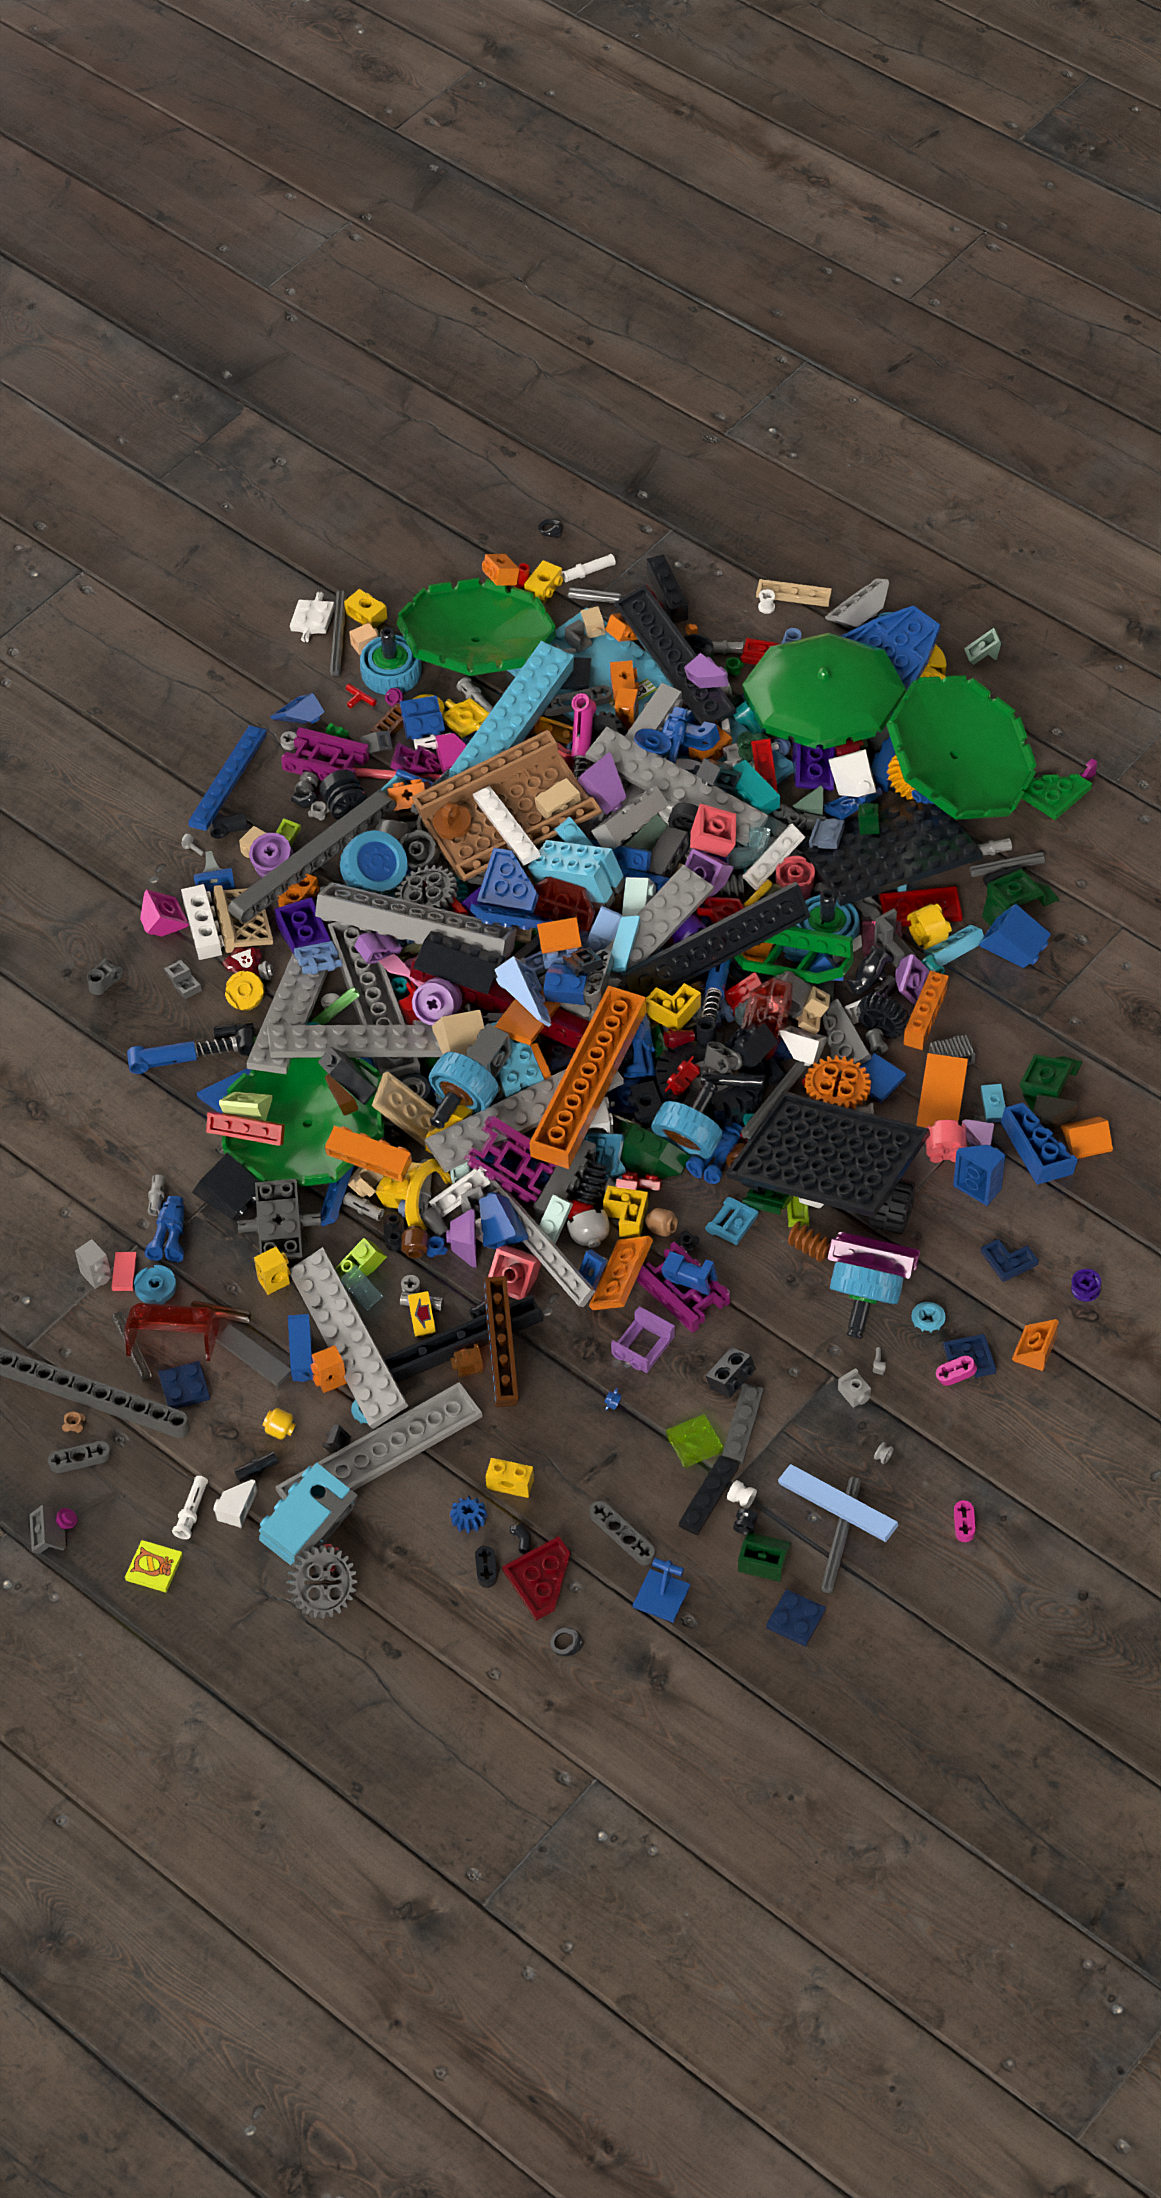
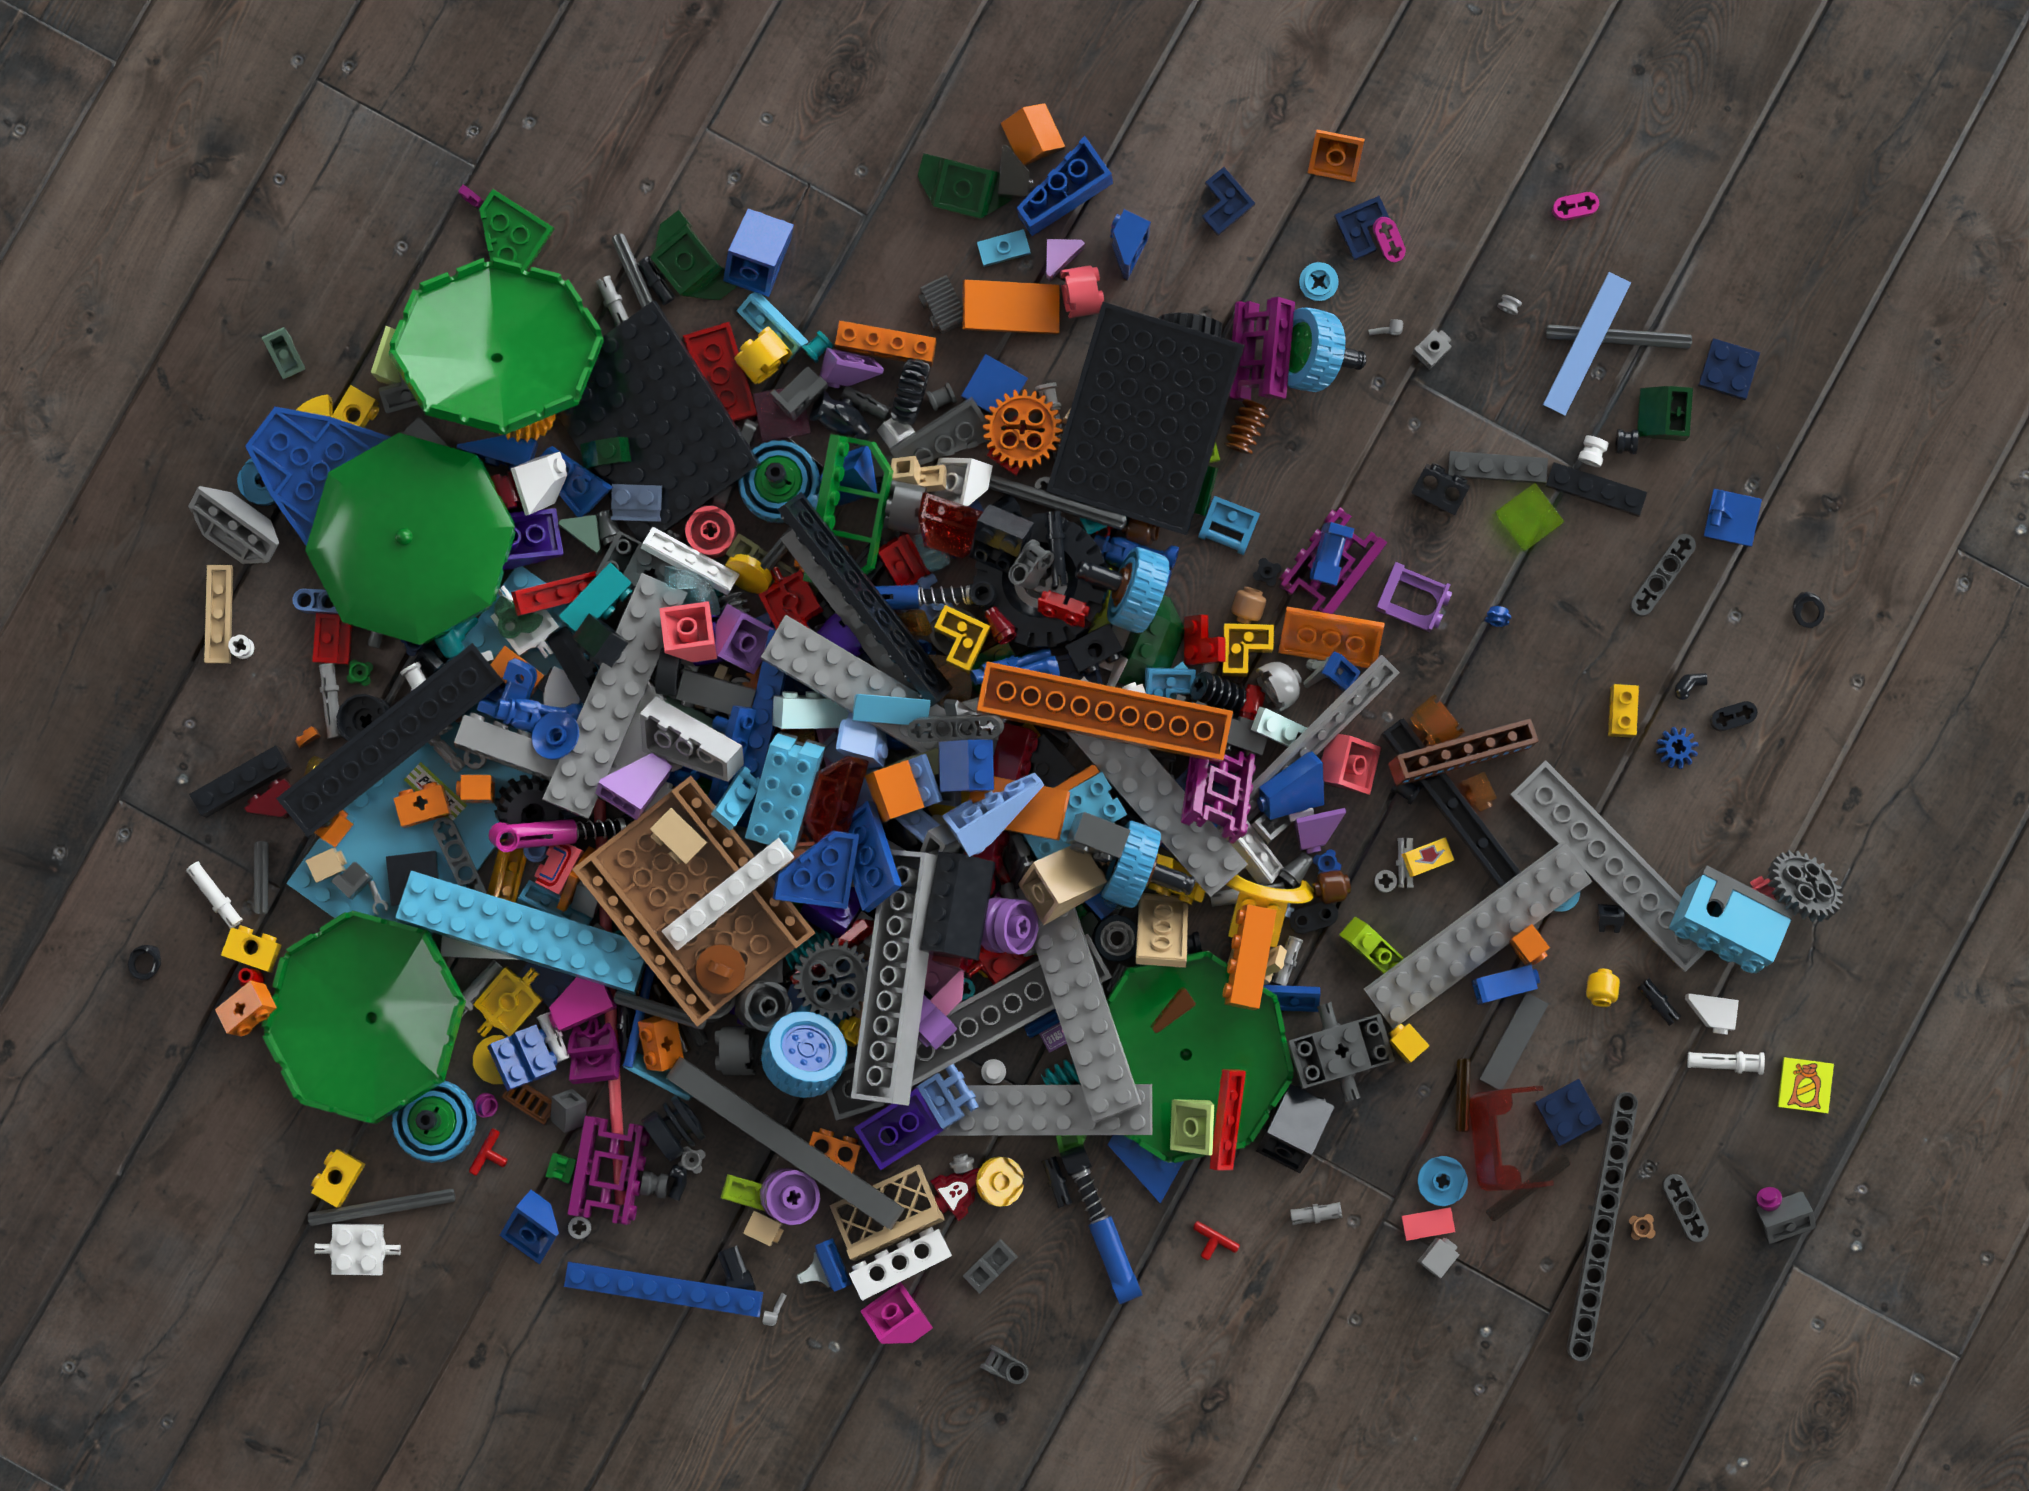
camera: 100 degrees left, 30 degrees up
(156, 1126) = (1214, 1239): none -> red piece
(170, 1220) = (1349, 1185): blue piece -> none
(337, 1006) = (1014, 1057): bright green axle -> none
(347, 1074) = (1146, 1006): black slope -> none
(361, 1287) = (1407, 935): clear light blue plate -> none
(362, 636) = (390, 1167): light nougat brick -> none
(532, 1334) = (1436, 721): none -> clear orange brick
(539, 1576) = (1737, 653): dark red plate -> none
(583, 961) = (943, 749): black plate -> none
(705, 673) = (427, 689): medium lavender slope -> none
(1086, 1284) = (1244, 110): dark purple wheel -> none

